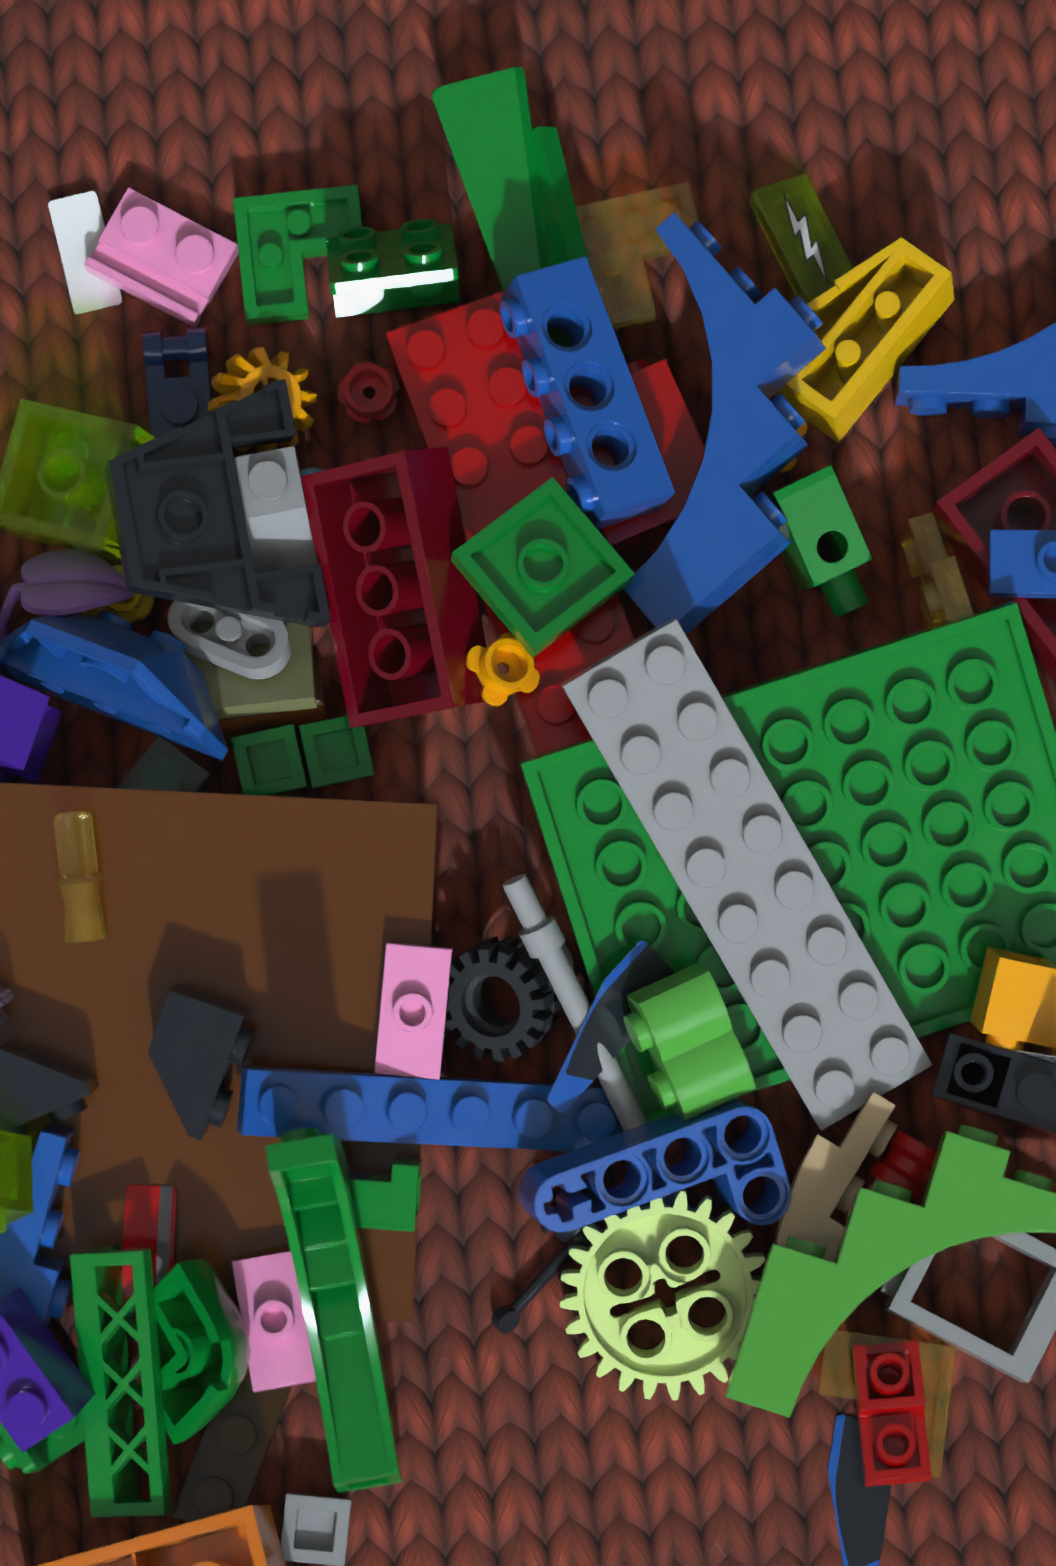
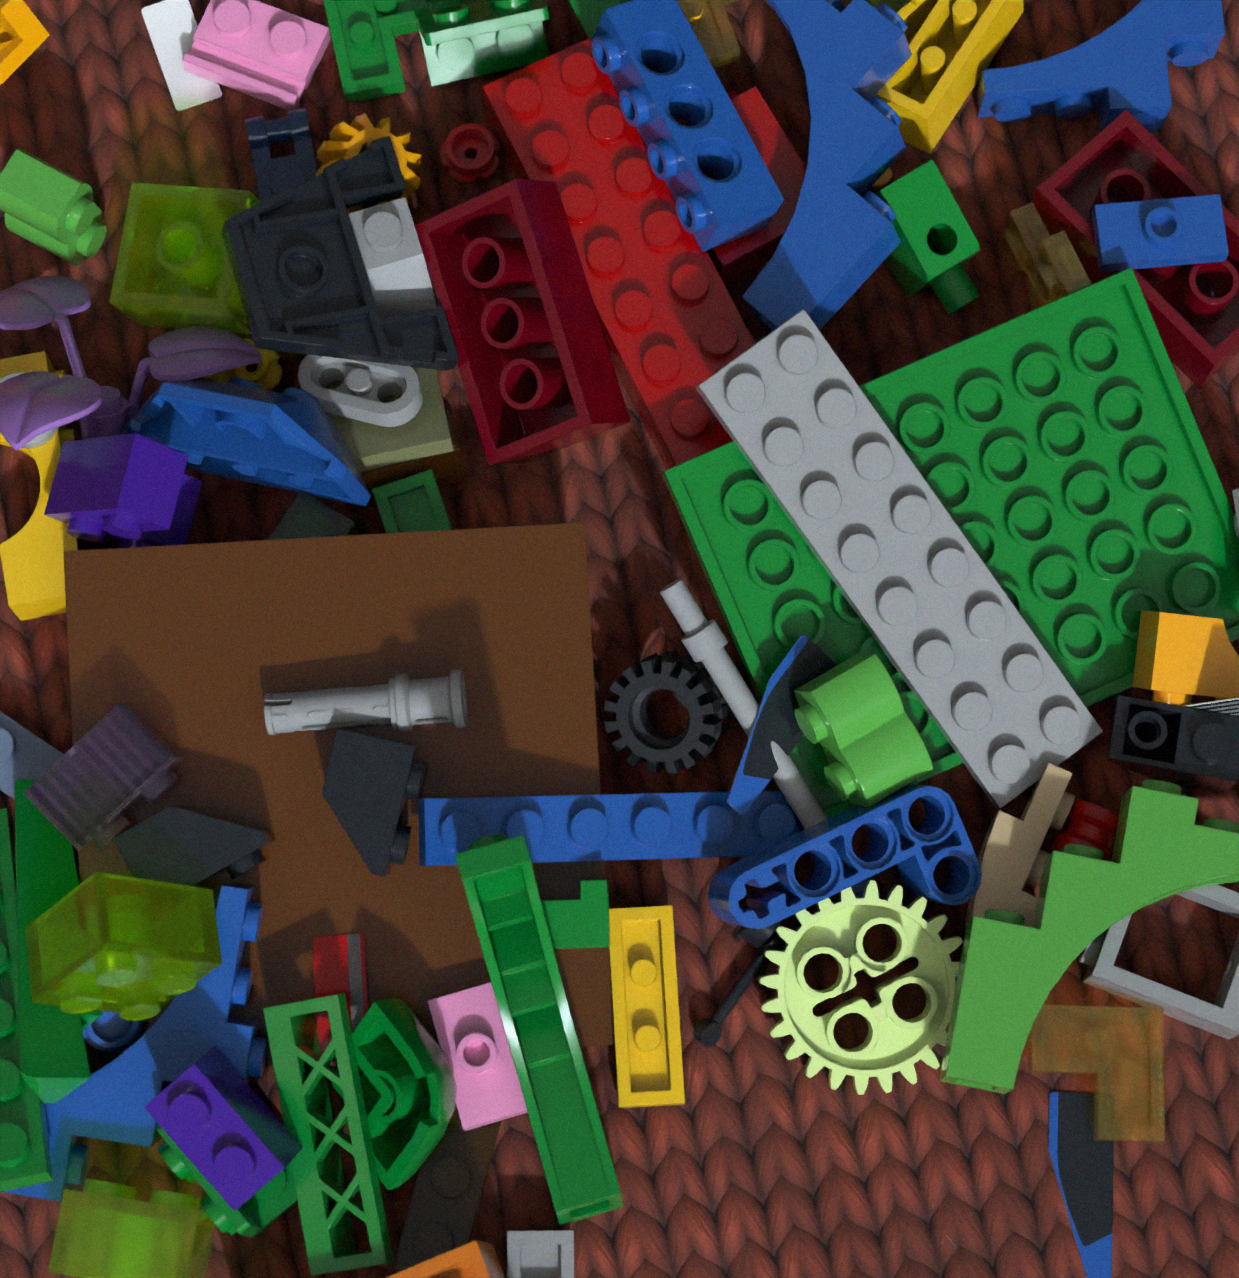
camera: 10 degrees left, 5 degrees down
(79, 877) = (235, 629): clear yellow axle -> none
(234, 967) = (399, 703): none -> light grey pin
(334, 752) = (475, 494): green plate -> none
(413, 1010) = (583, 728): bright pink plate -> none
(446, 1288) = (645, 1007): none -> yellow plate
(520, 666) = (643, 373): light orange plate -> none
(542, 567) = (663, 282): green plate -> none
(891, 1413) = (1108, 1080): red slope -> none

